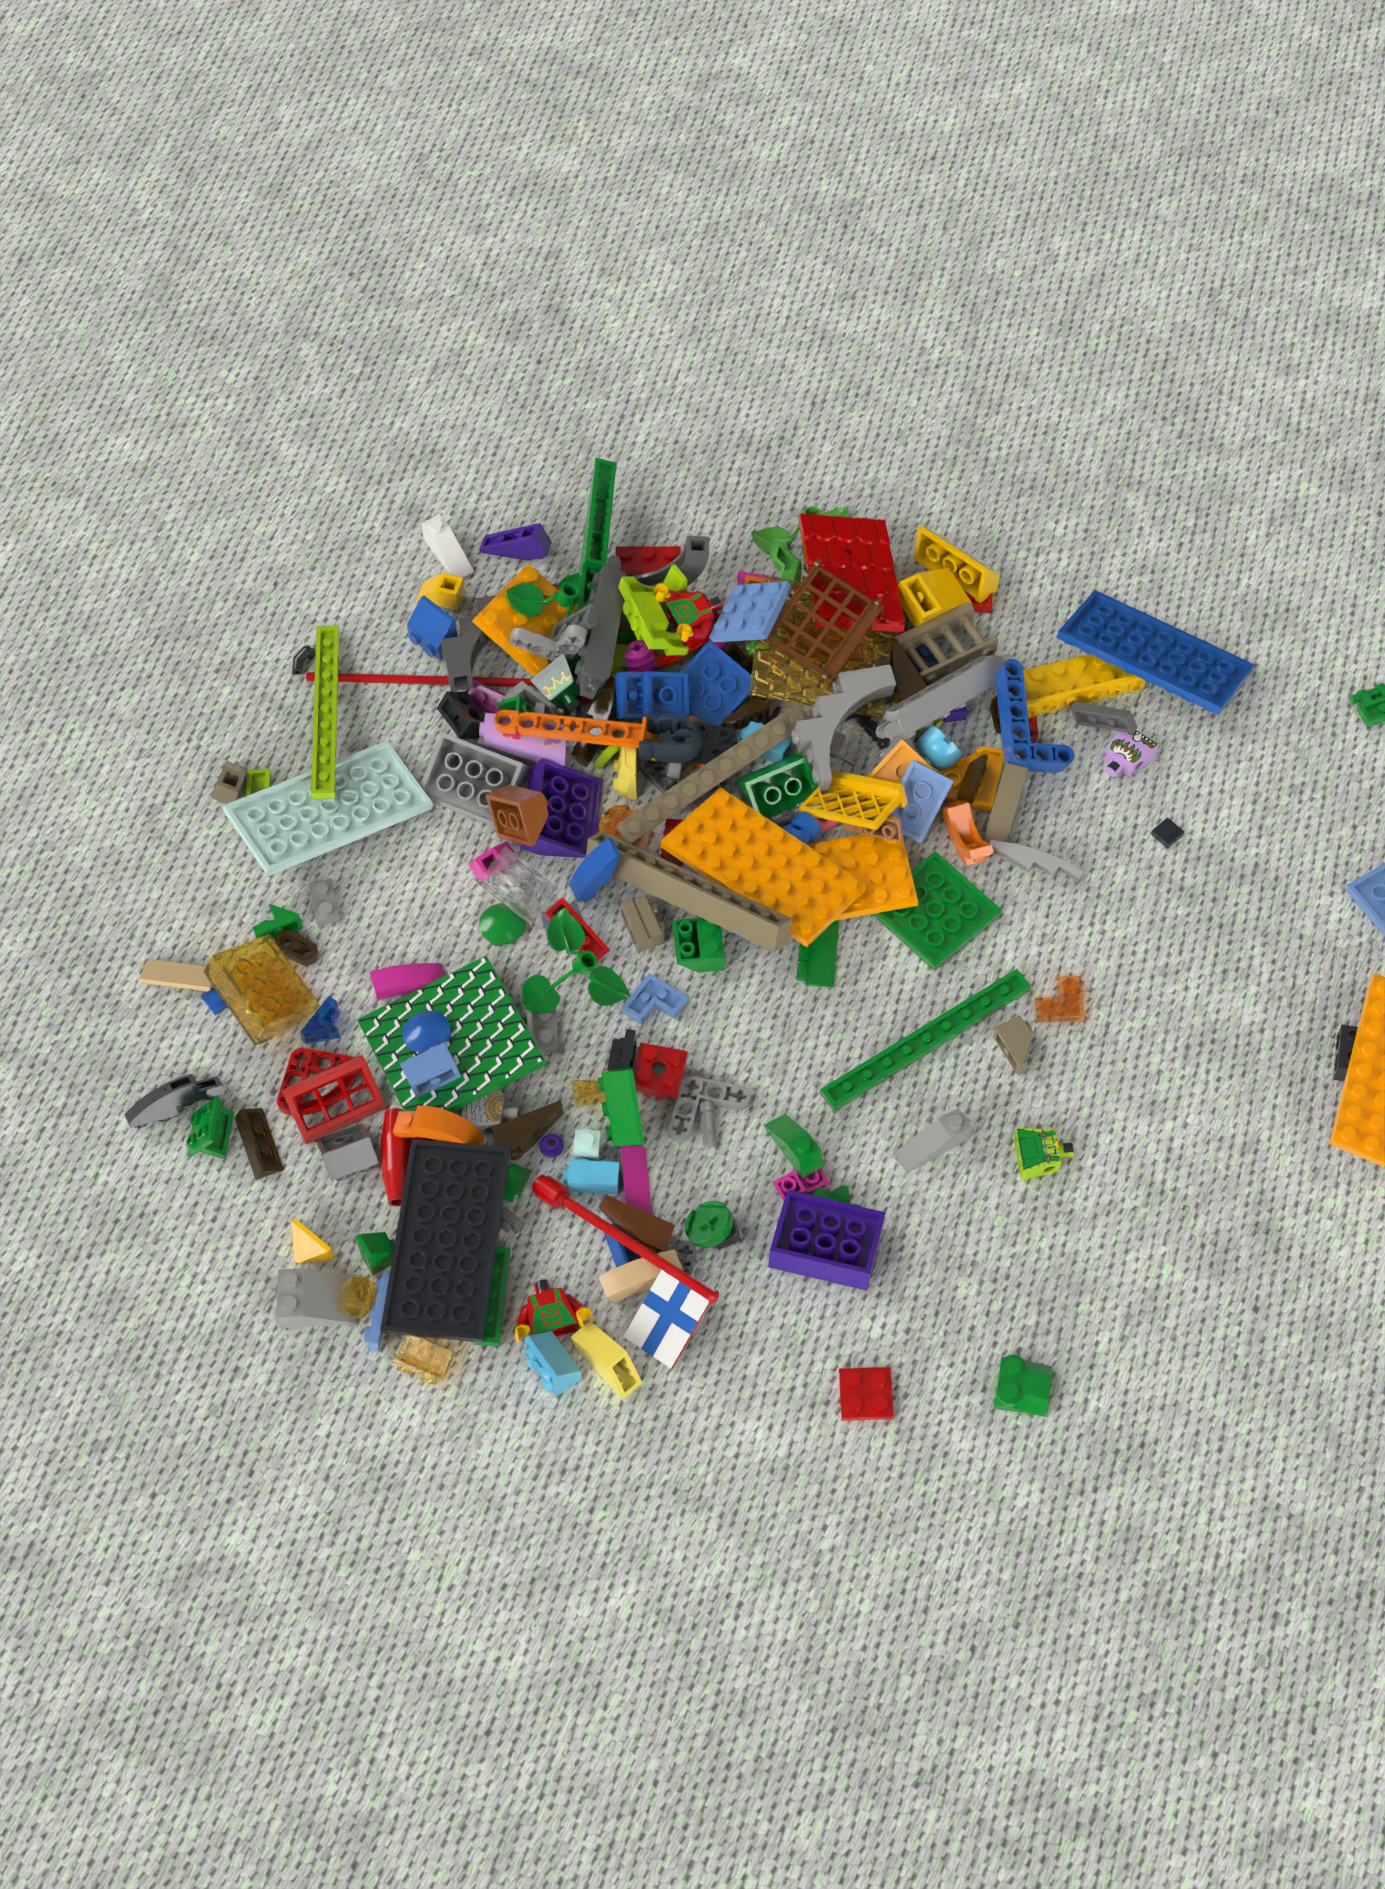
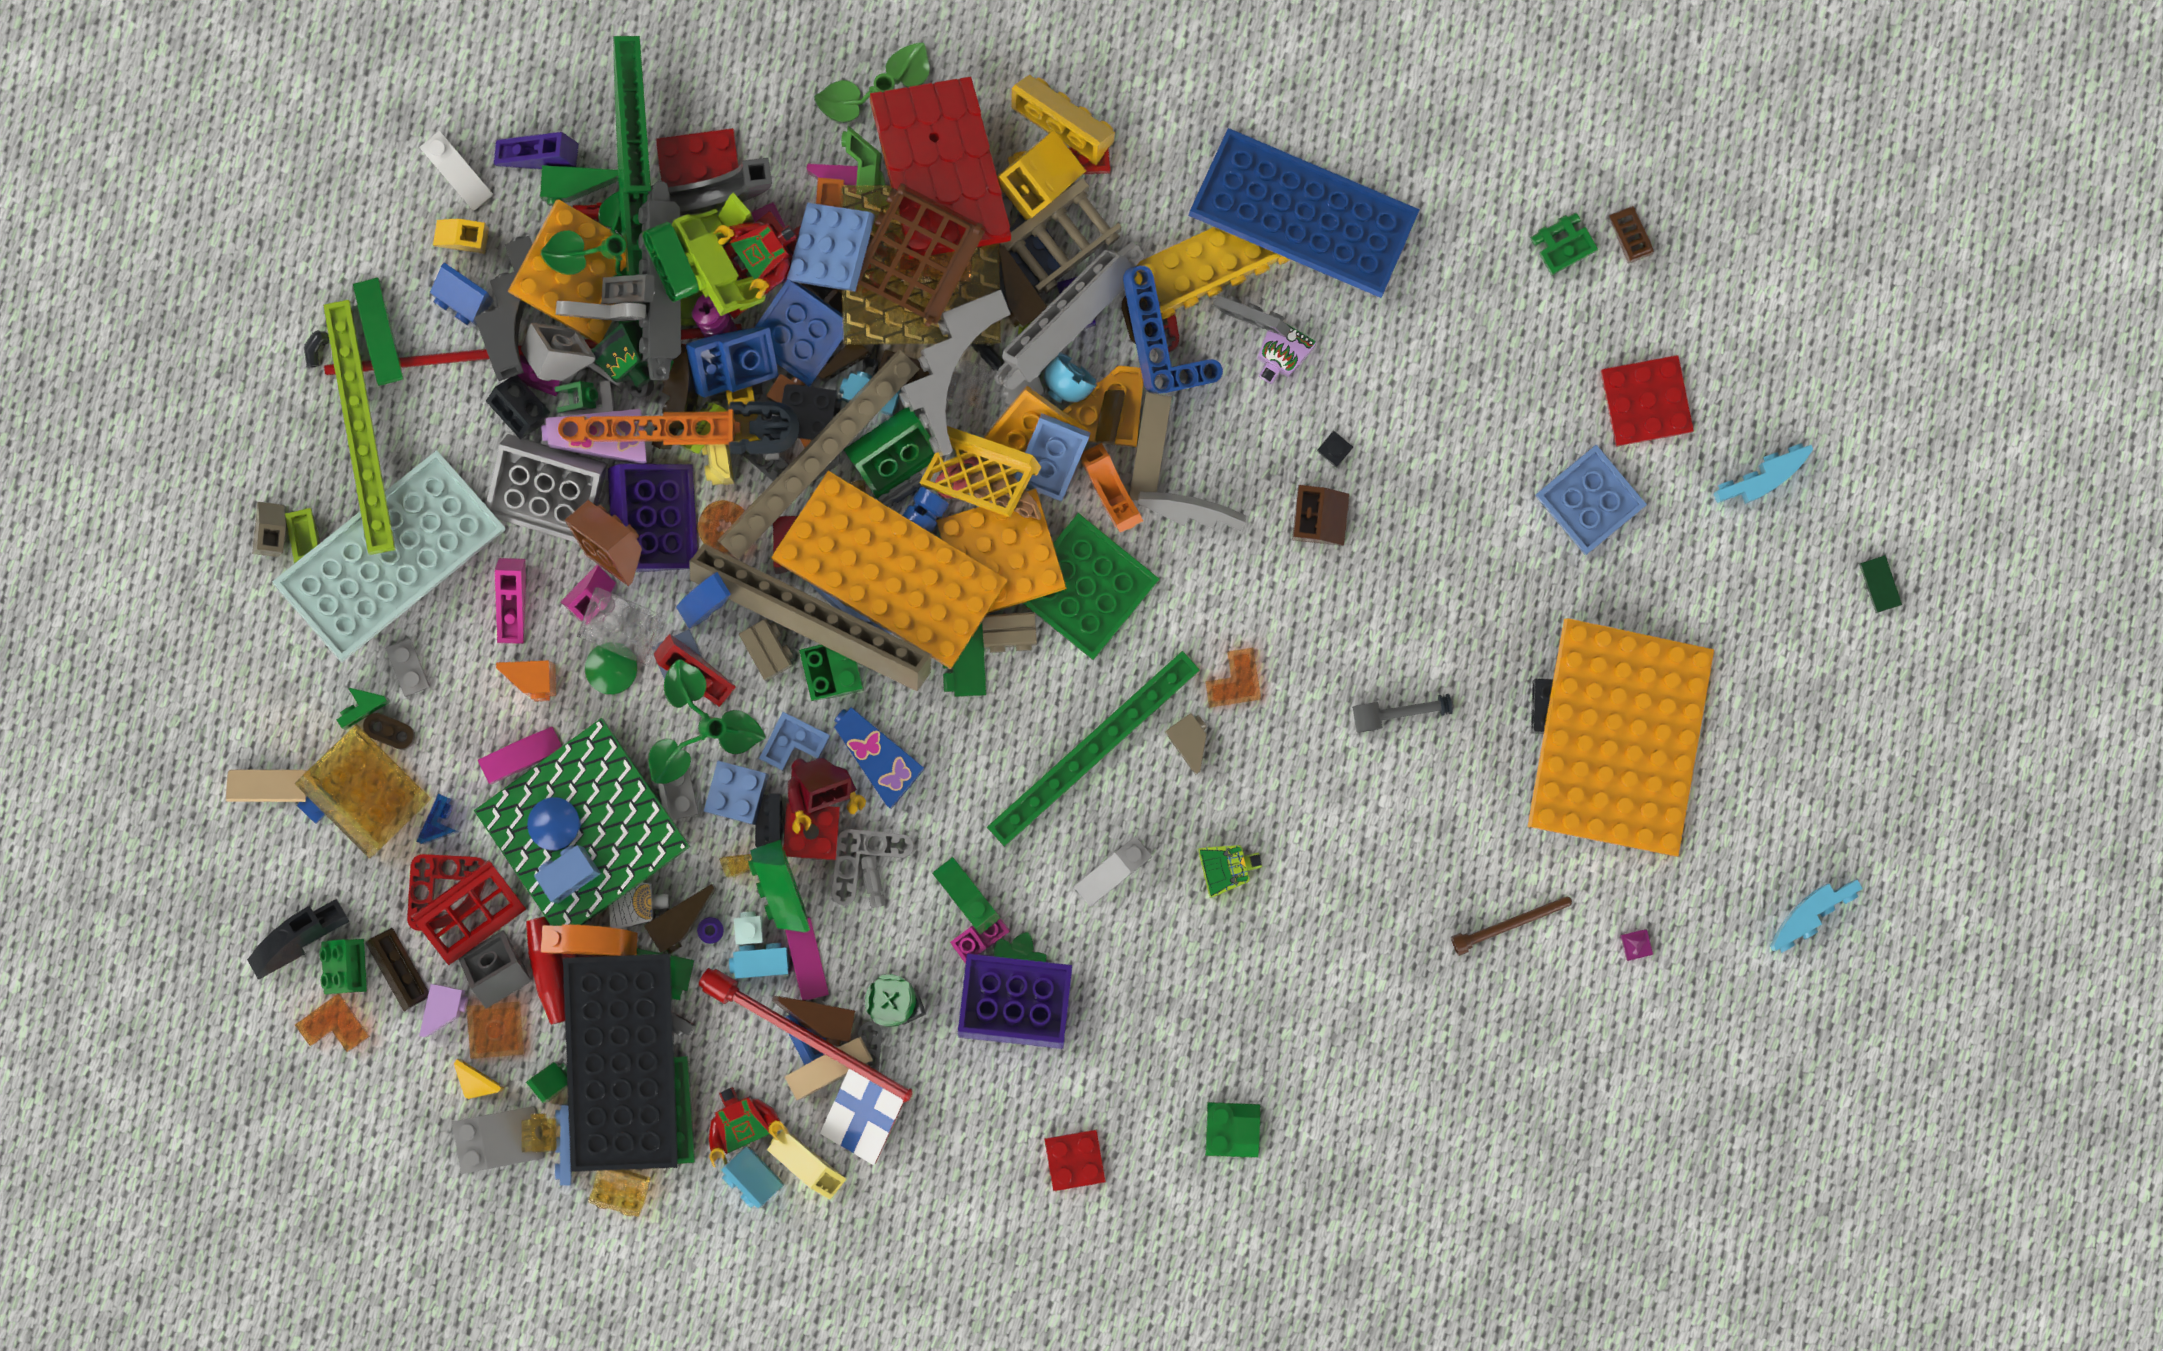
camera: 10 degrees left, 25 degrees up
(188, 1173) = (333, 1017): none -> clear orange plate
(291, 1177) = (442, 1007): none -> lavender slope
(336, 1205) = (495, 1030): none -> clear orange plate
(357, 651) = (378, 331): none -> green slope
(425, 859) = (510, 599): none -> dark pink slope
(430, 914) = (532, 678): none -> orange slope
(501, 674) = (555, 351): none -> light grey slope
(547, 564) = (573, 182): none -> green slope
(595, 1034) = (736, 792): none -> medium blue plate
(613, 606) = (670, 261): none -> green beam
(673, 1031) = (818, 786): none -> dark red torso
(731, 1022) = (880, 758): none -> blue slope
(862, 935) = (1009, 631): none -> dark tan brick
(1150, 877) = (1320, 515): none -> reddish brown slope
(1184, 1043) = (1370, 717): none -> dark grey piece
(1260, 1247) = (1464, 942): none -> reddish brown piece

